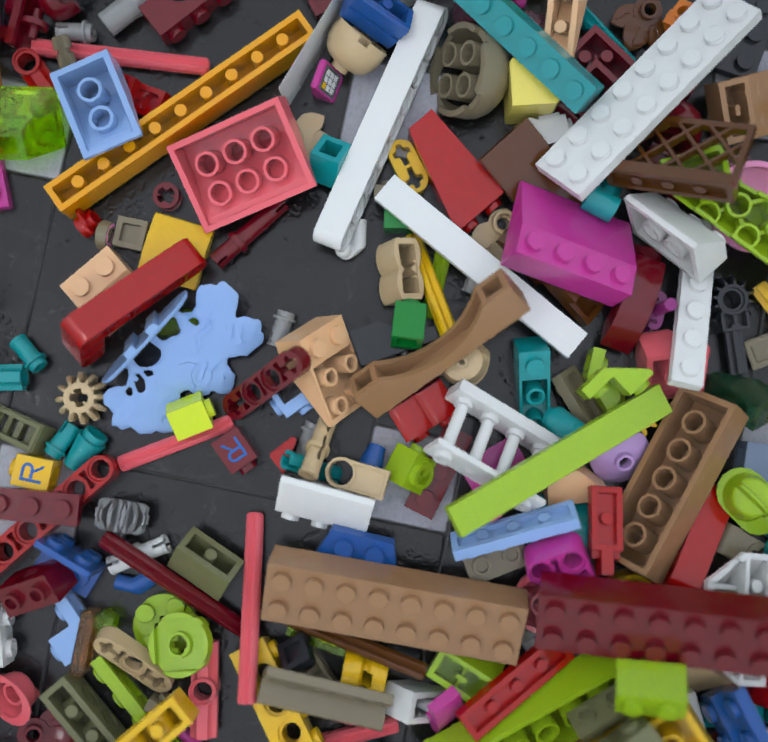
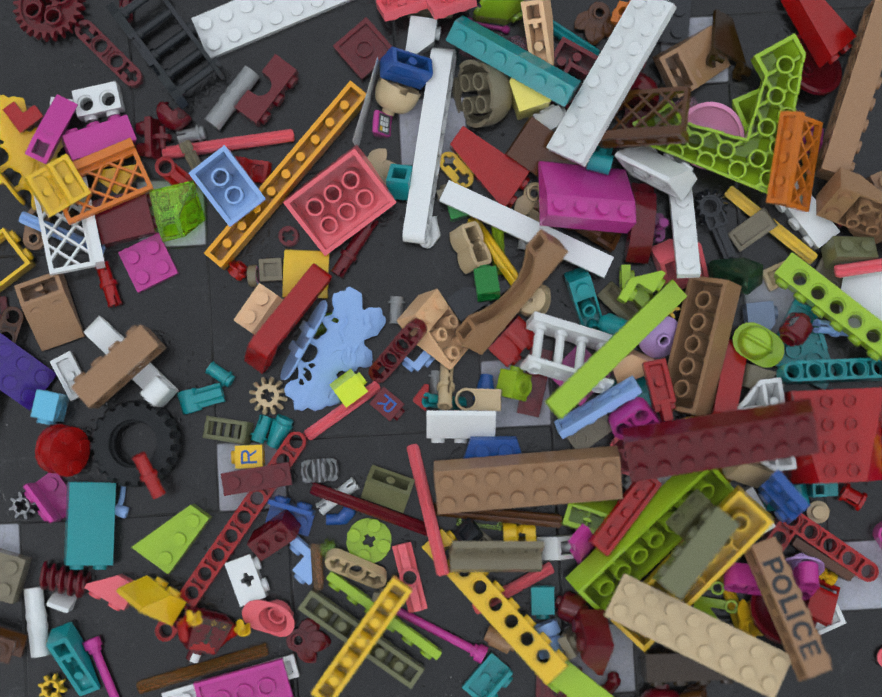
camera: 10 degrees left, 0 degrees up
(168, 657) = (398, 553): lime plate -> none
(651, 689) = (713, 485): lime brick -> none

